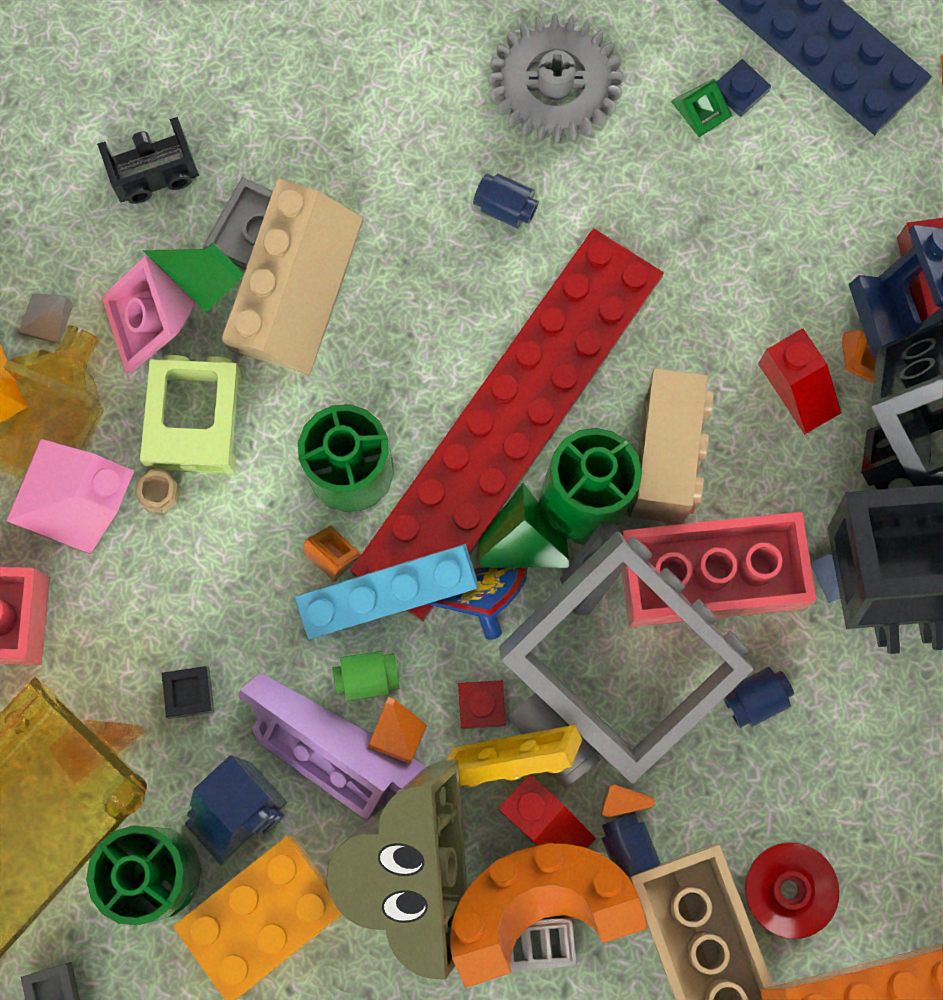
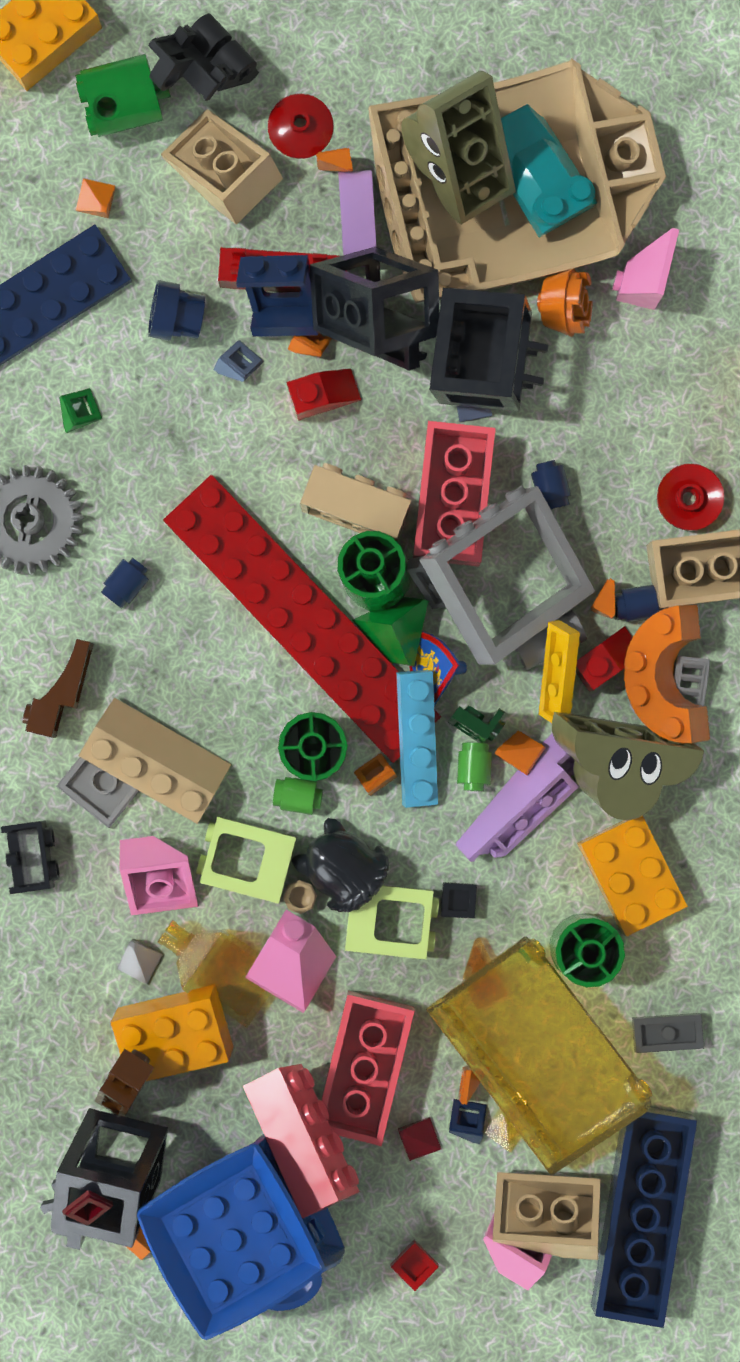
camera: 80 degrees left, 10 degrees up
(140, 570) = (362, 924): none -> yellowish green window
(199, 272) = (138, 830): green slope -> none
(202, 533) = (343, 867): none -> black hair
(233, 807) = (555, 878): dark blue wedge -> none
(281, 460) = (297, 795): none -> bright green brick
(326, 145) = (45, 714): none -> reddish brown slope
(421, 655) = (470, 723): none -> dark green bracket
(482, 704) = (512, 686): red plate -> none
(742, 87) = (69, 374): dark blue plate -> none
(806, 272) = (234, 365): none -> sand blue slope
(852, 182) = (175, 312): none -> dark blue piece

